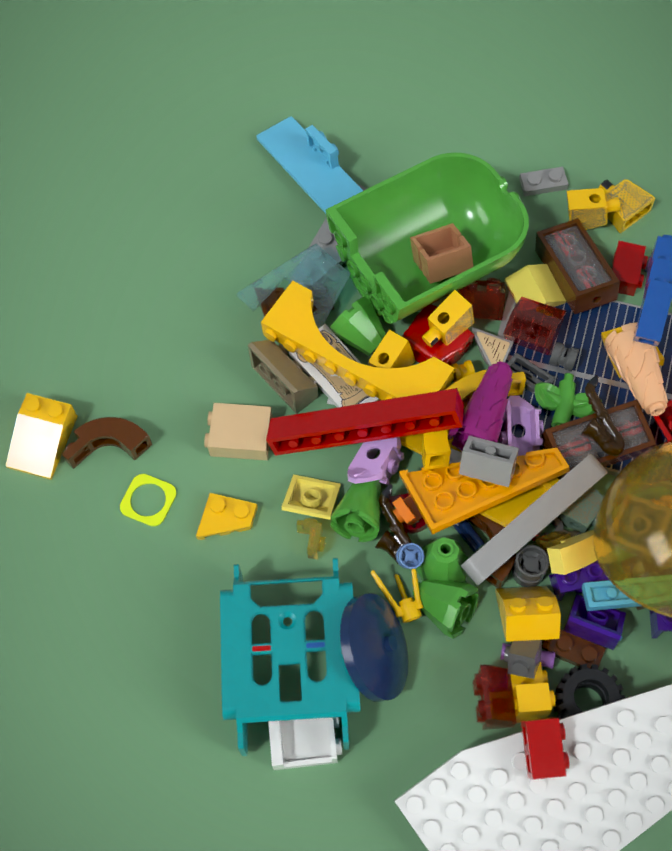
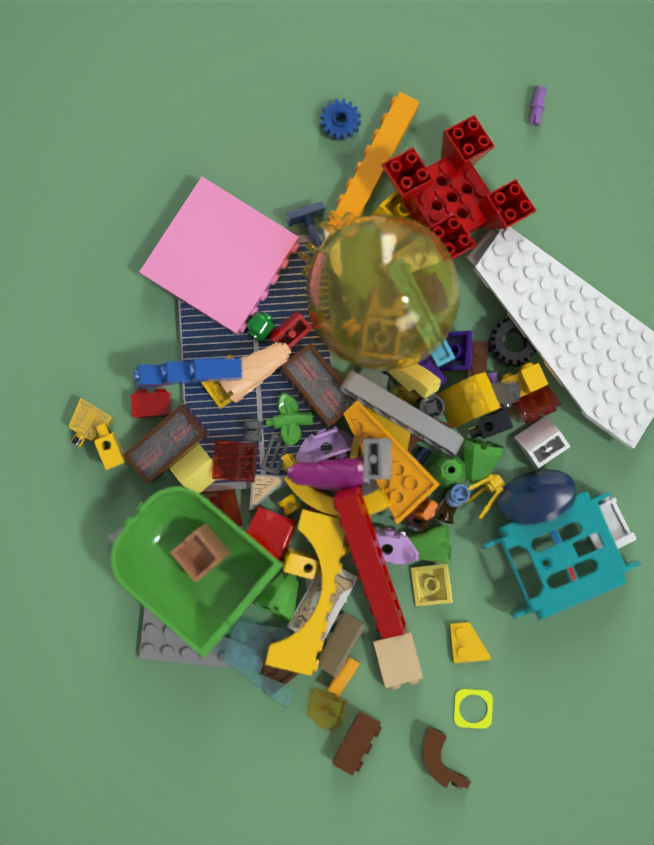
camera: 115 degrees left, 20 degrees up
(40, 435) = (455, 814): slope -> none
(167, 359) = (357, 742): none -> reddish brown brick
(218, 341) = (326, 709): none -> clear yellow slope
(246, 370) = (339, 683): none -> light orange slope
(309, 161) = (135, 696): medium azure bracket -> none
(316, 541) = (464, 568): clear yellow bracket -> none
(441, 690) = (541, 442): none -> white slope
(449, 320) = (256, 523): yellow torso -> none
(485, 635) = (500, 421): none -> black torso
(543, 181) = (84, 494): light grey plate -> none
(544, 748) = (569, 360): red brick -> none
(605, 433) = (318, 380): dark brown piece -> none

